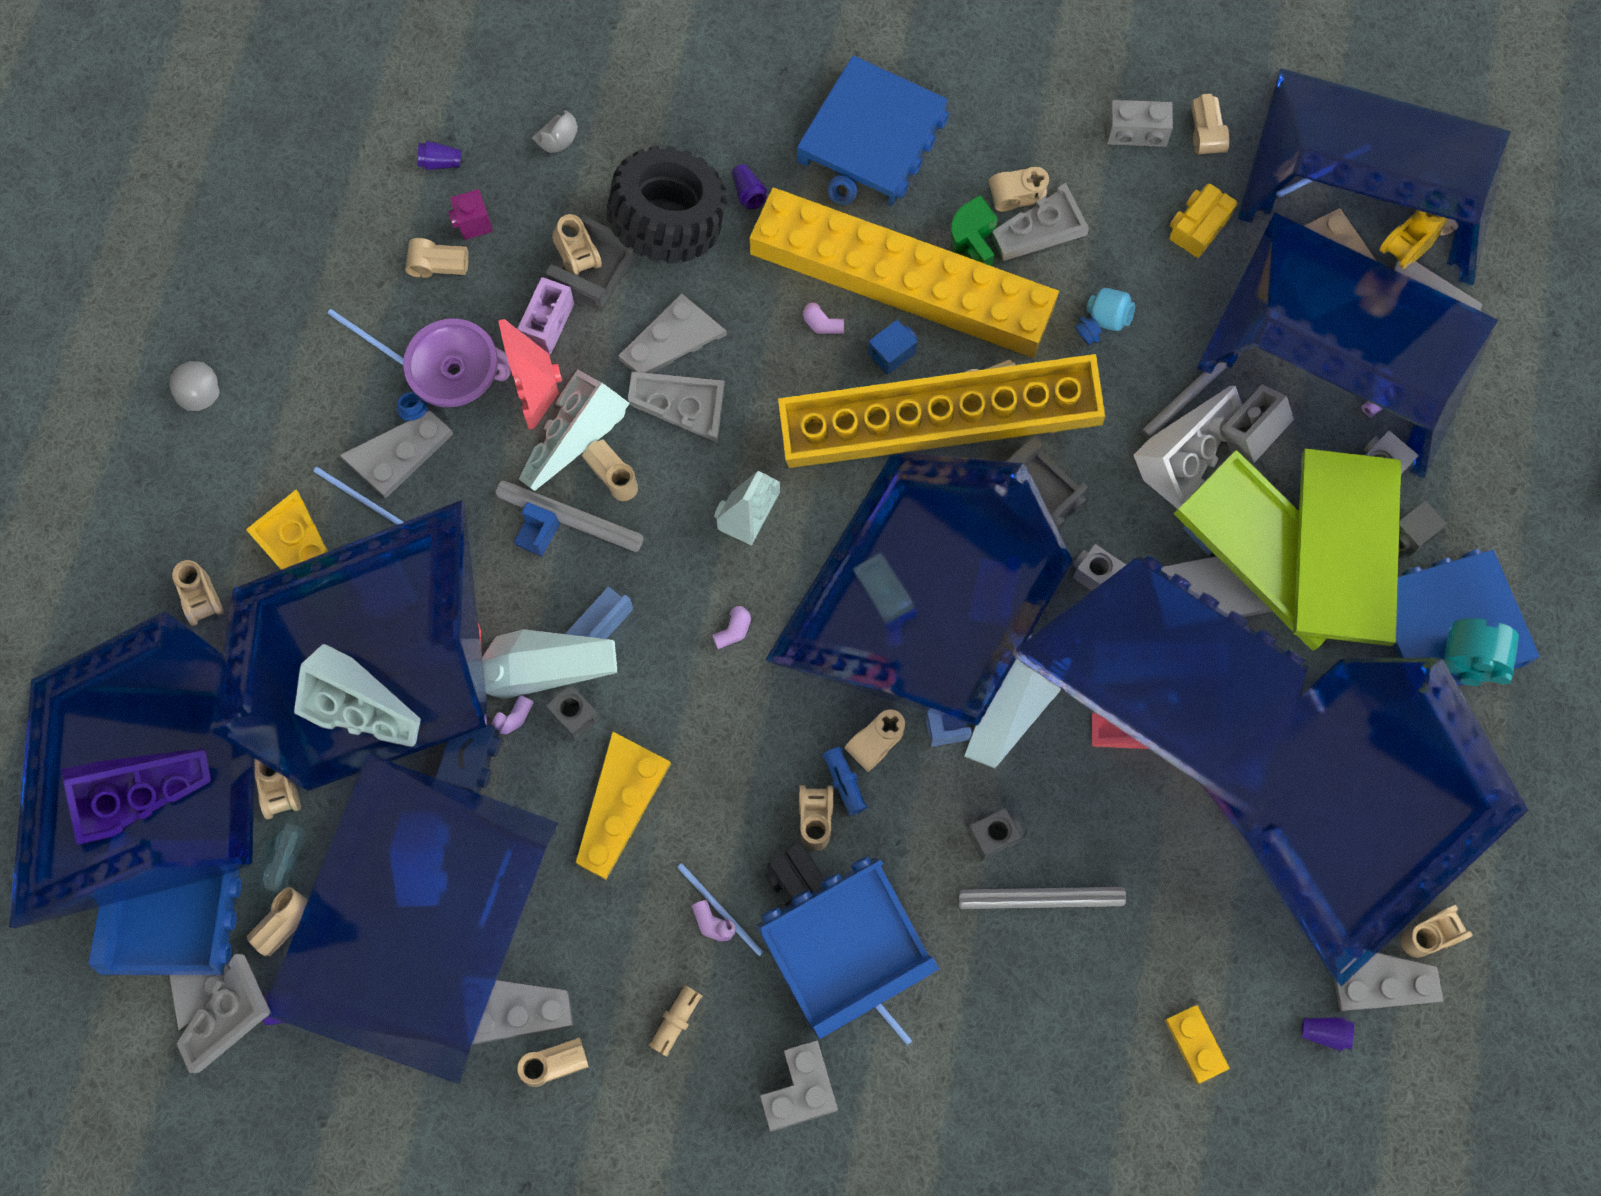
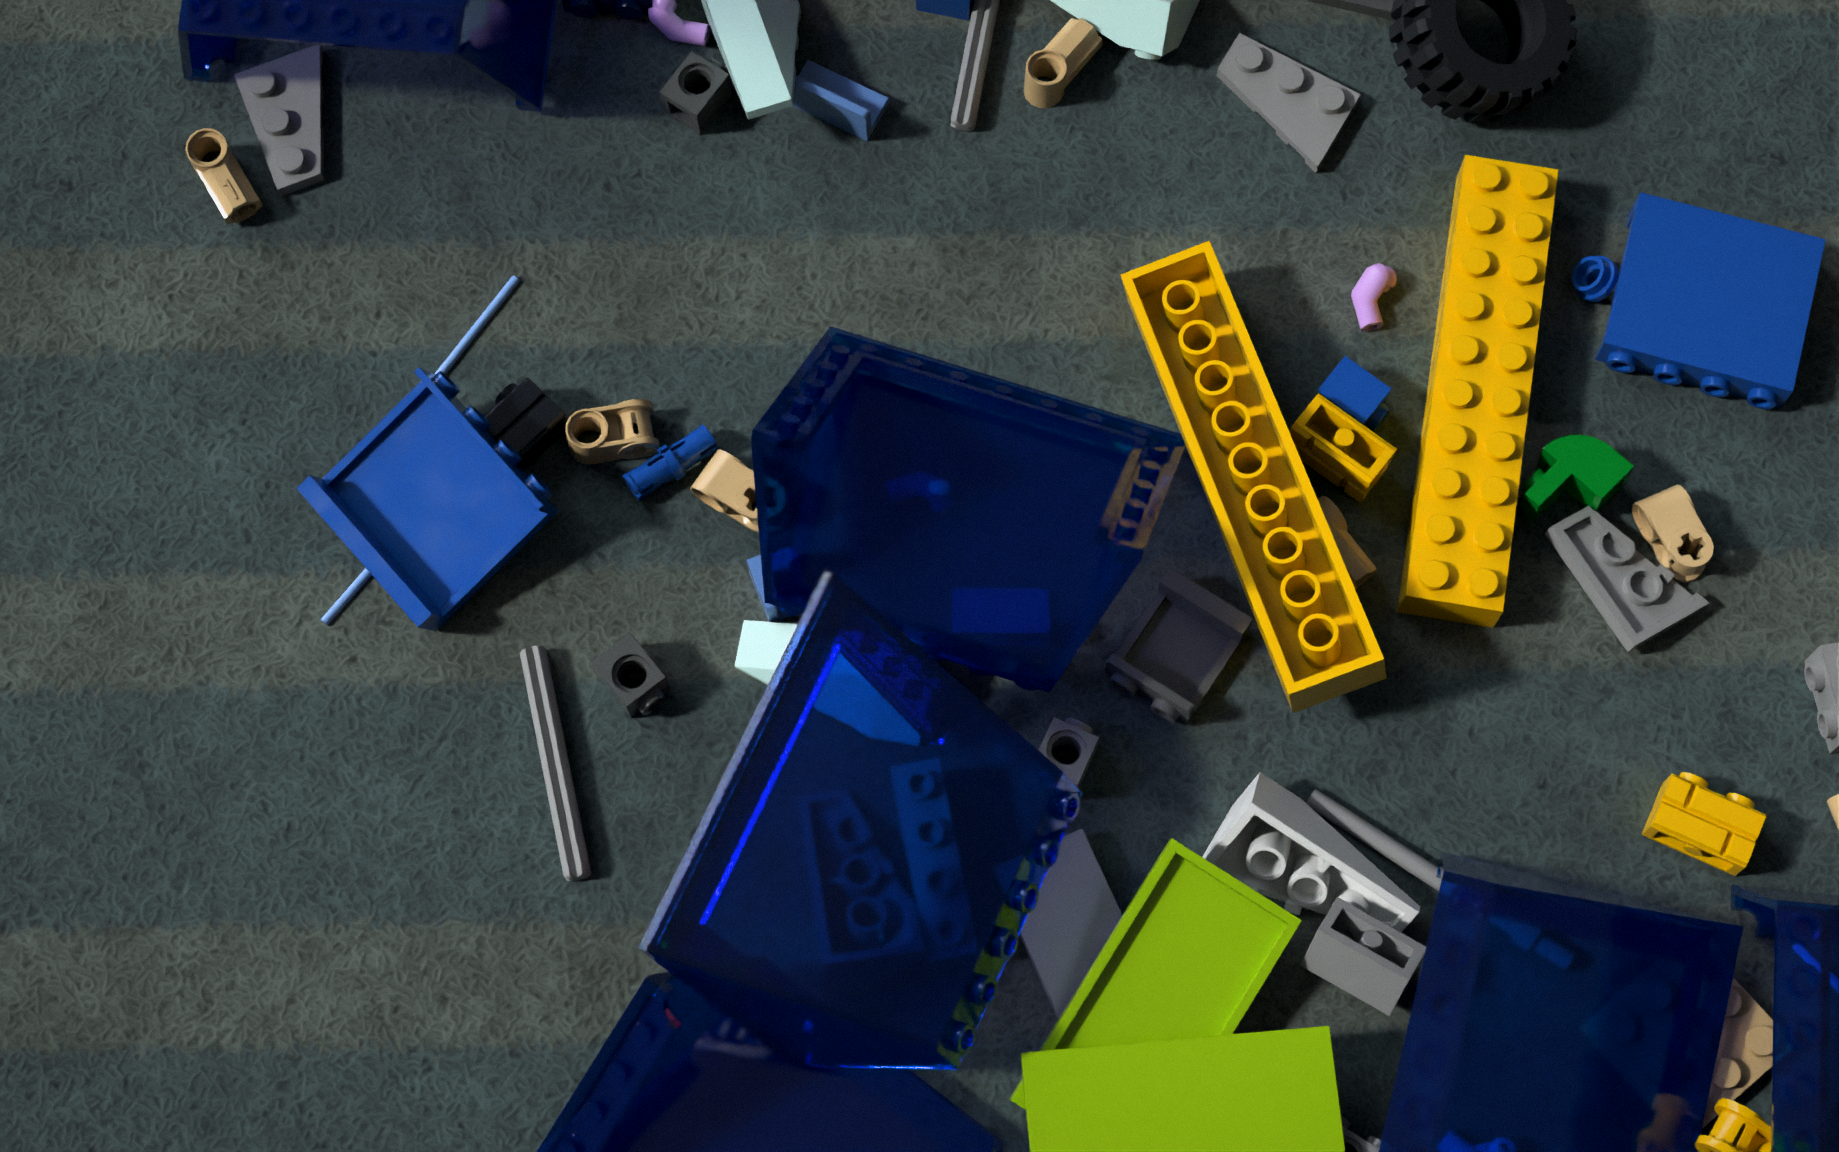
camera: 80 degrees right, 0 degrees up
(622, 795) = (592, 184): yellow wing -> none
(675, 1020) = (303, 314): tan pin -> none
(680, 400) = (1191, 130): light grey wing -> none
(712, 926) = (438, 333): lavender arm -> none
(736, 629) = (864, 276): lavender arm -> none
(747, 507) = (1038, 244): light aqua wedge -> none
(748, 187) = (1561, 145): dark purple cone -> none
(810, 1094) = (236, 496): light grey brick -> none
(883, 588) = (959, 450): clear light blue plate -> none
(930, 356) = (1340, 447): none -> yellow brick
(1088, 330) = (1459, 678): blue plate -> none
(1111, 309) = (1504, 706): medium azure head -> none
(1197, 1044) = (382, 1014): yellow plate -> none

